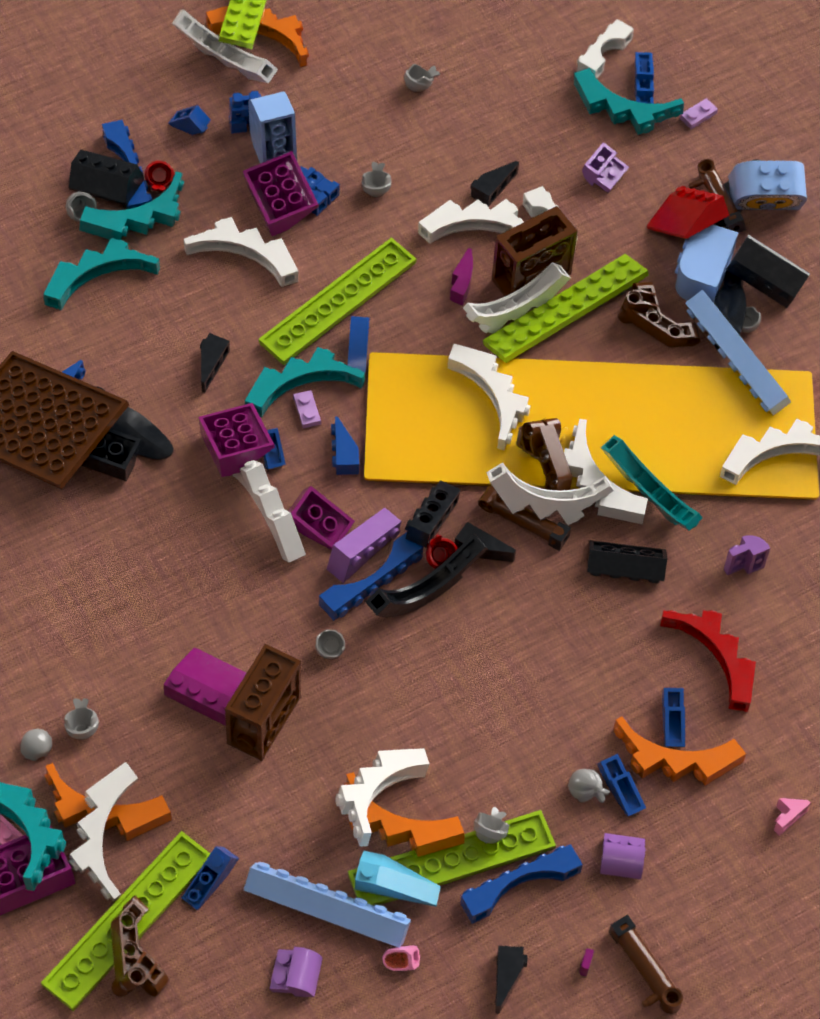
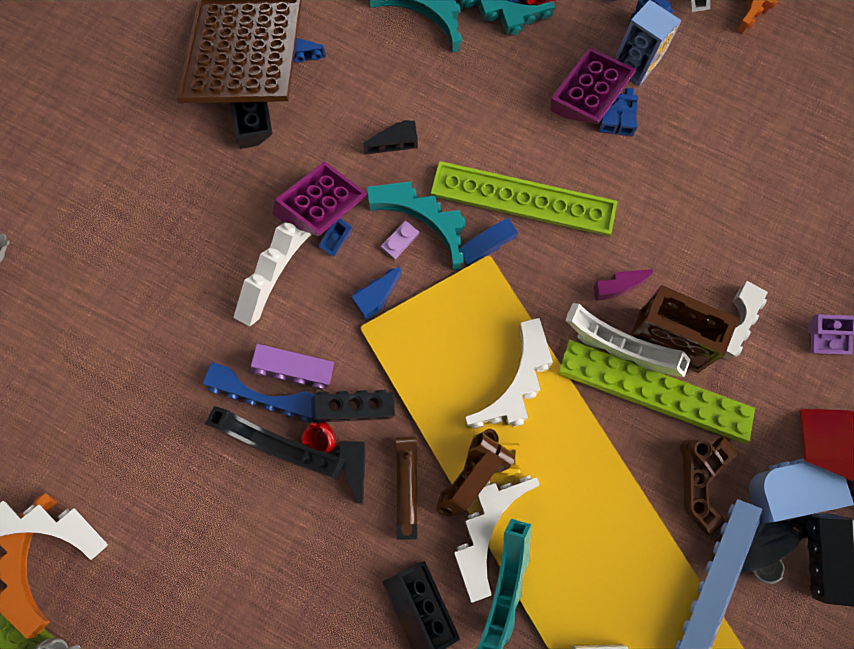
camera: 60 degrees right, 15 degrees up
(153, 442) = (292, 121): black plant -> none
(203, 684) = (81, 331): magenta slope -> none
(250, 244) = (529, 97): white arch -> none
(263, 702) = (59, 381): reddish brown piece -> none
(319, 518) = (293, 315): magenta slope -> none
(330, 644) = (171, 399): light grey hair -> none
(376, 182) = (664, 154): light grey hat -> none
(418, 78) = (799, 123): light grey hat -> none
(477, 216) = (695, 257): white arch -> none
(492, 183) = (738, 248): black slope -> none
(544, 502) = (437, 522): white arch -> none

